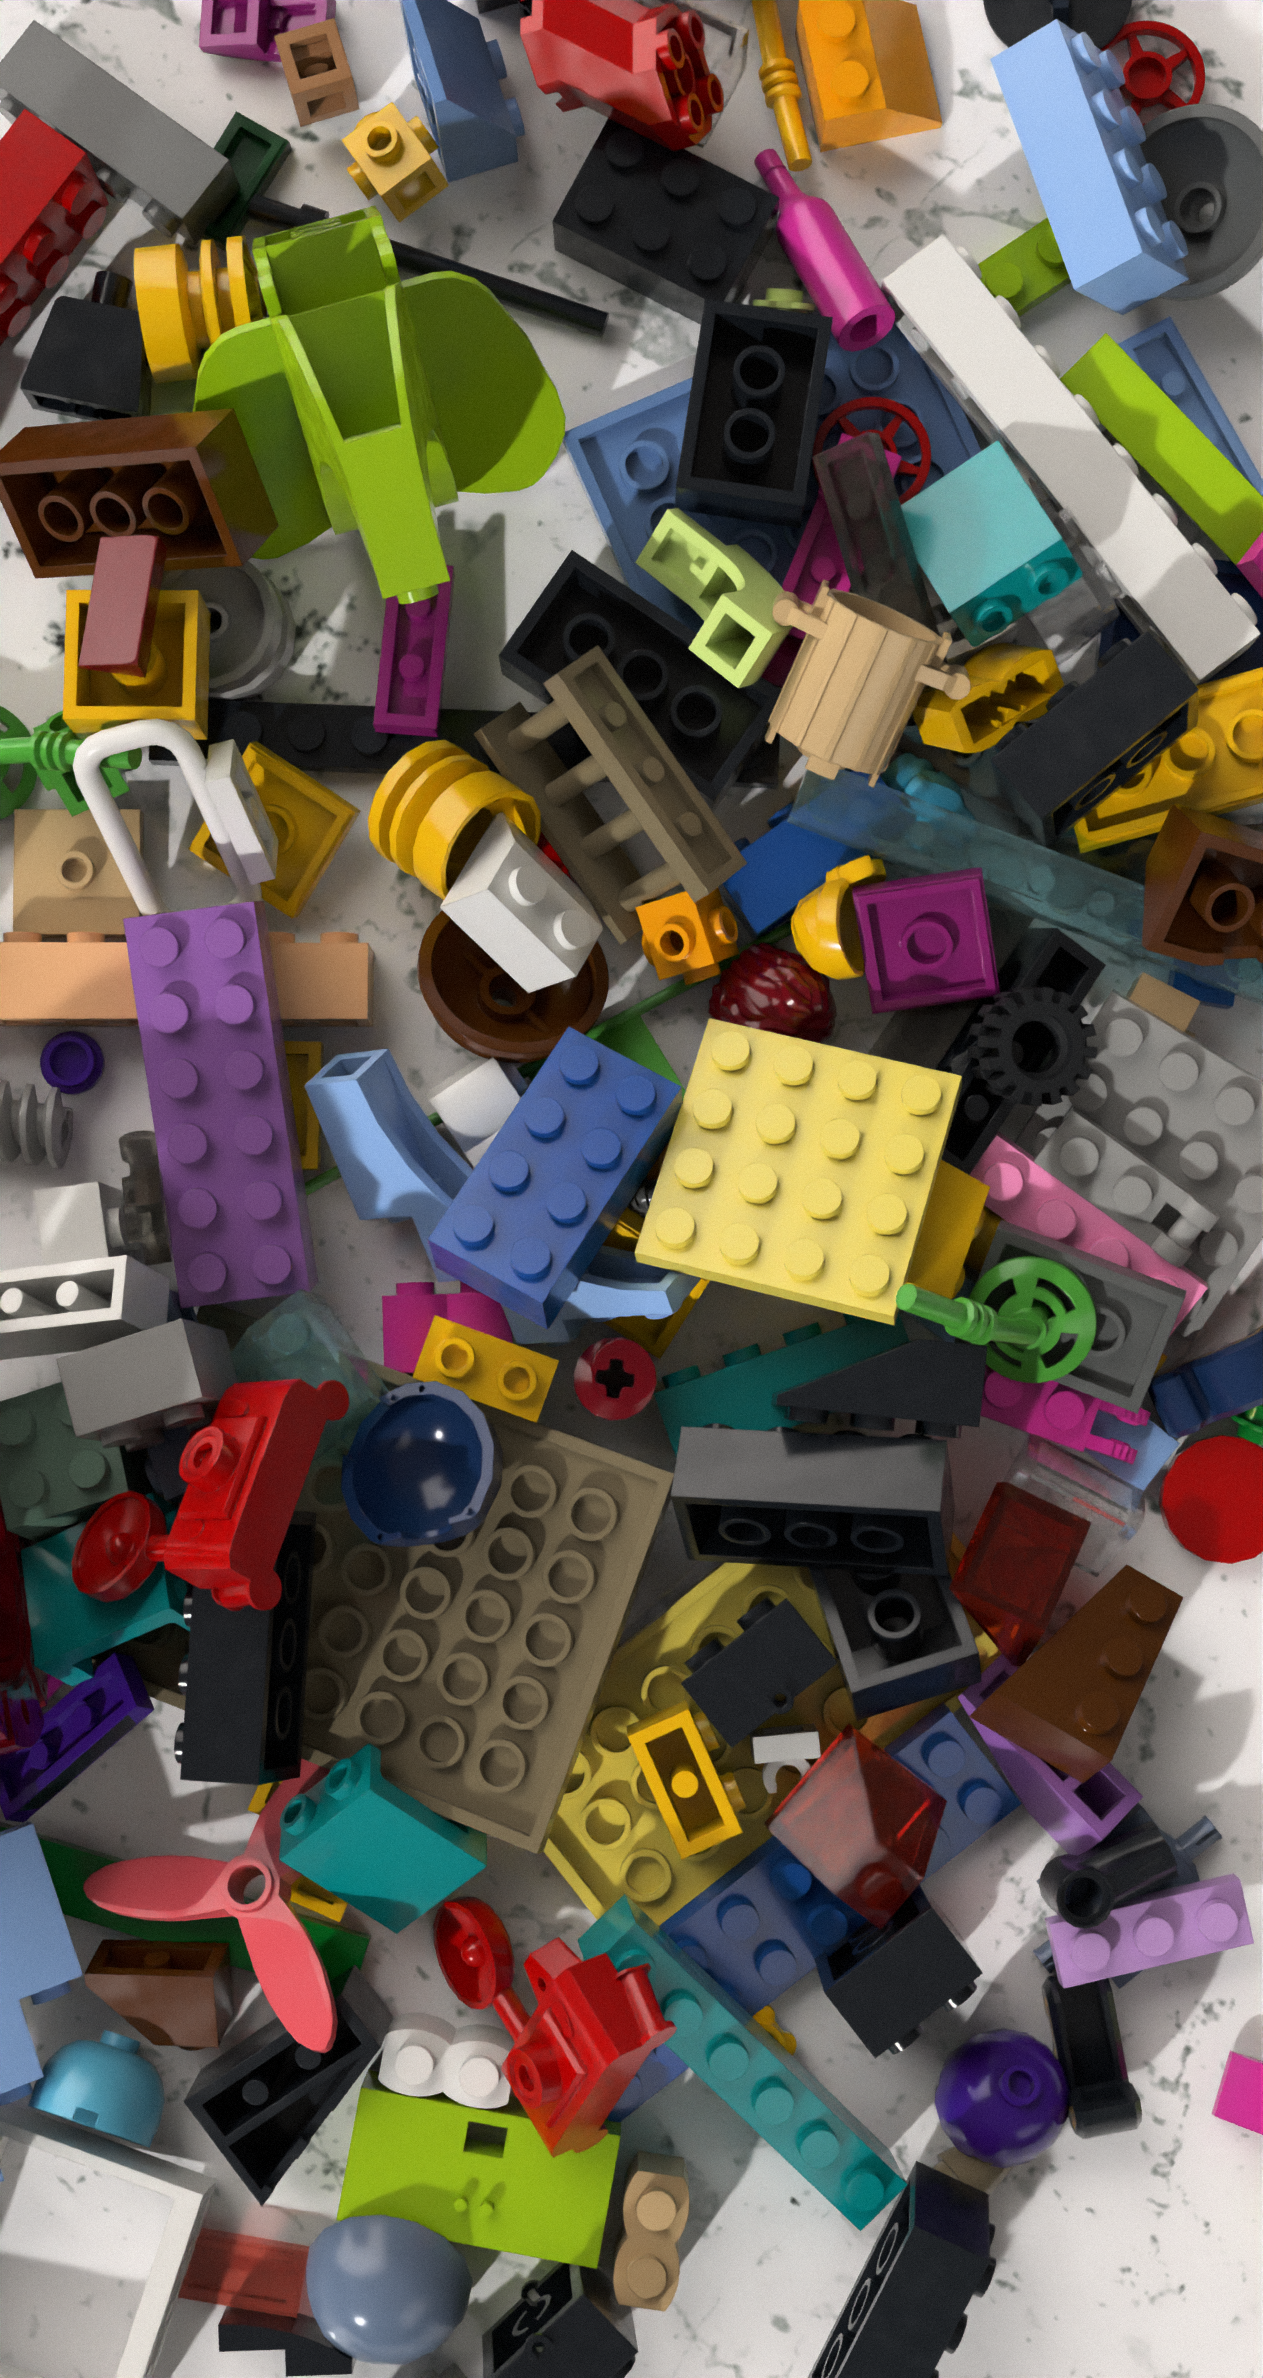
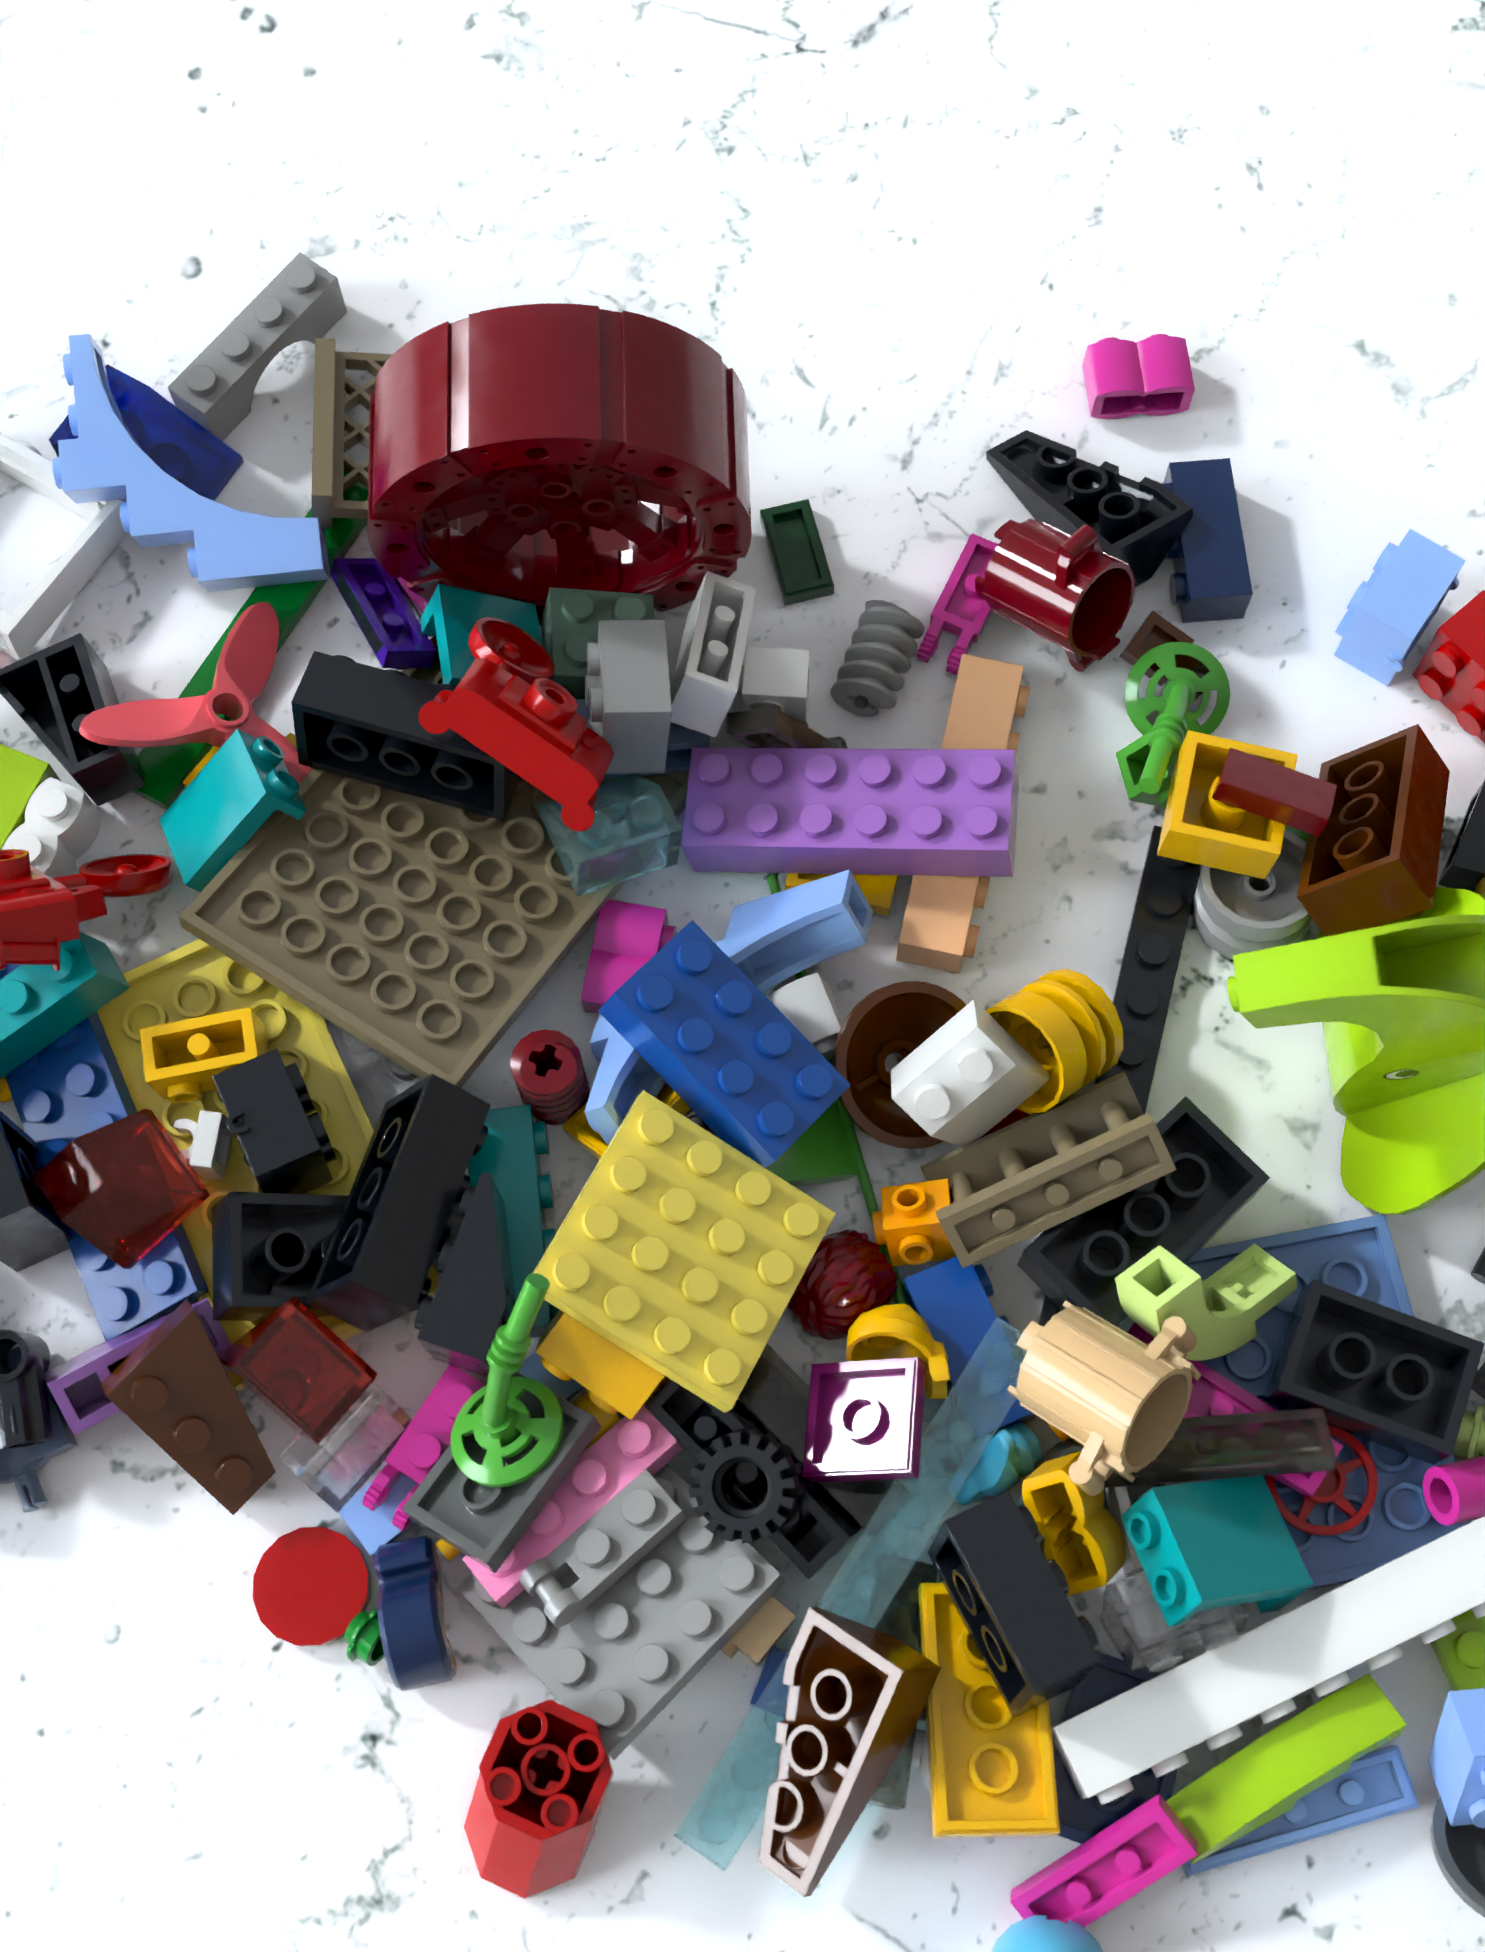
camera: 100 degrees right, 15 degrees down
(68, 875) = (1070, 756): tan plate -> none
(72, 1062) = (915, 722): dark purple plate -> none
(103, 2088) = (111, 587): medium azure cylinder -> none
(166, 1989) = (172, 646): reddish brown slope -> none
(220, 790) = (1110, 854): white bar -> none
(306, 821) = (1076, 909): yellow tile -> none
(414, 663) = (1210, 1048): magenta hinge -> none
(422, 1467) = (510, 889): dark blue cylinder -> none
(486, 1368) = (583, 966): yellow brick -> none

